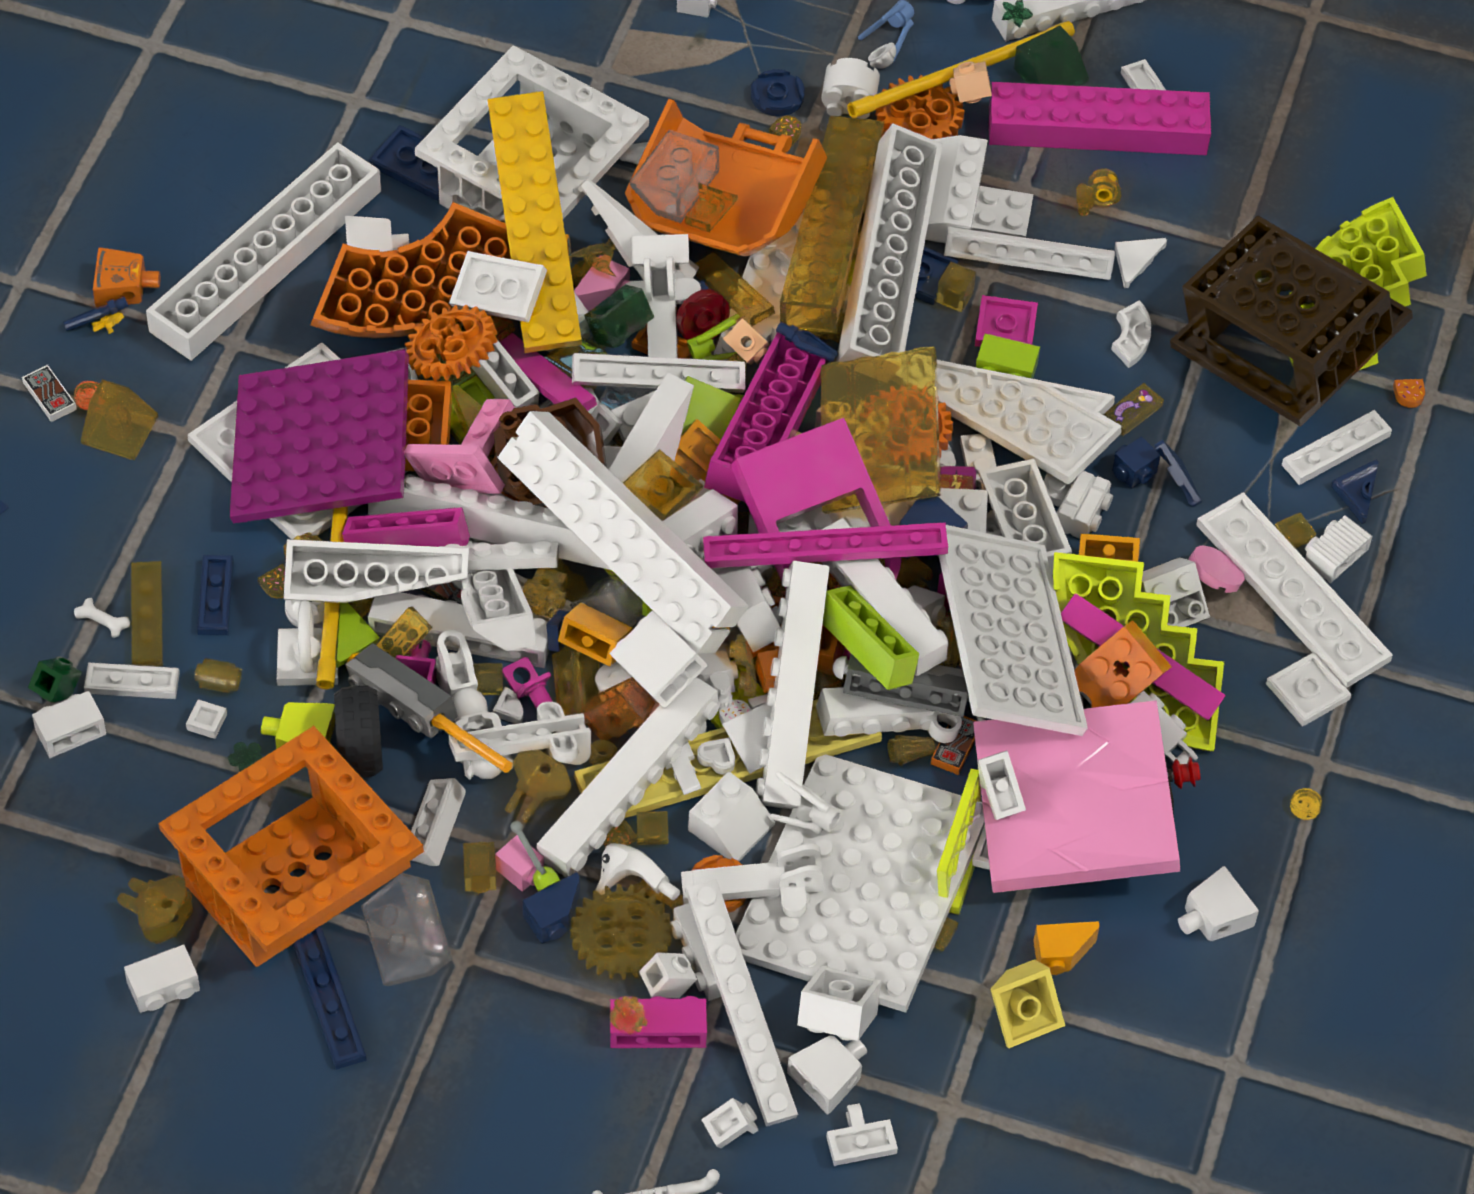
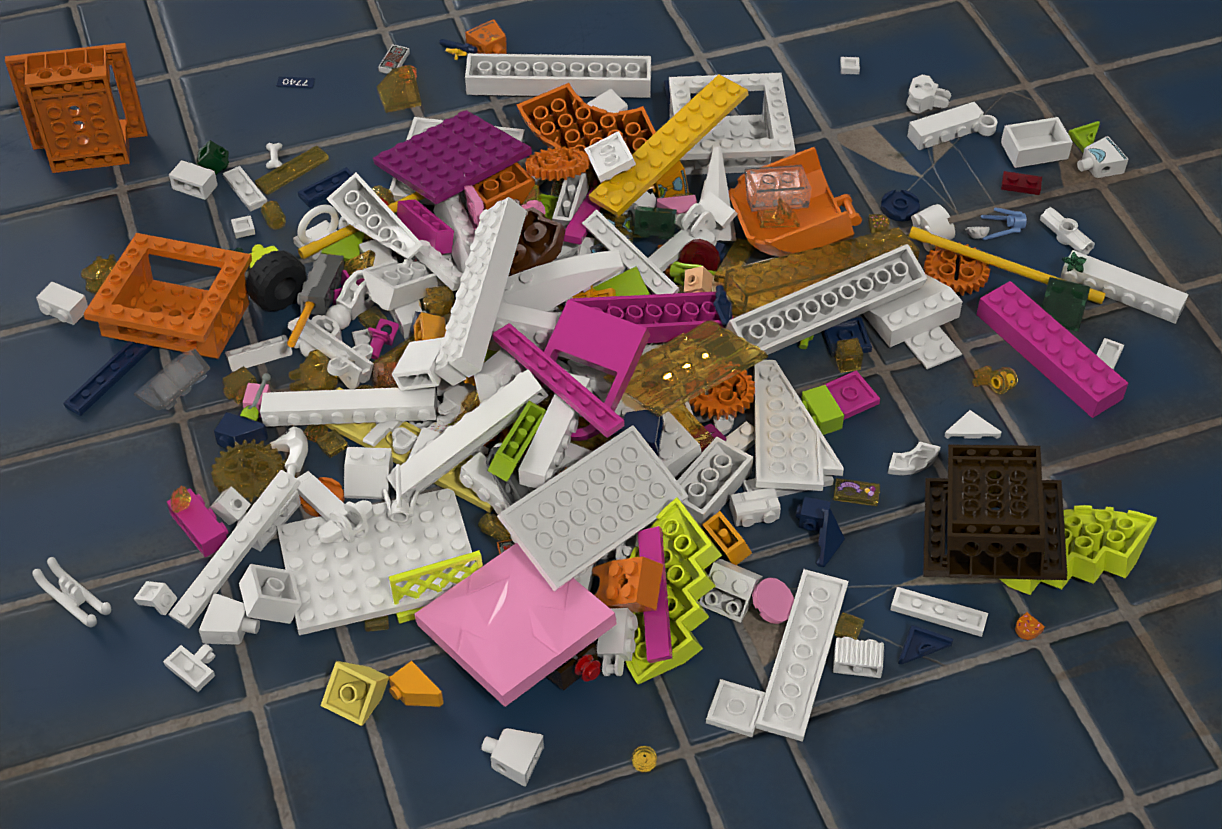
camera: 55 degrees right, 5 degrees down
(600, 264) = (686, 197): clear yellow piece -> none
(663, 485) = (543, 294): clear yellow slope -> none
(971, 82) = (997, 271): light nougat brick -> none
(1001, 785) = (477, 571): white slope -> none
(1029, 253) = (912, 374): white tile -> none

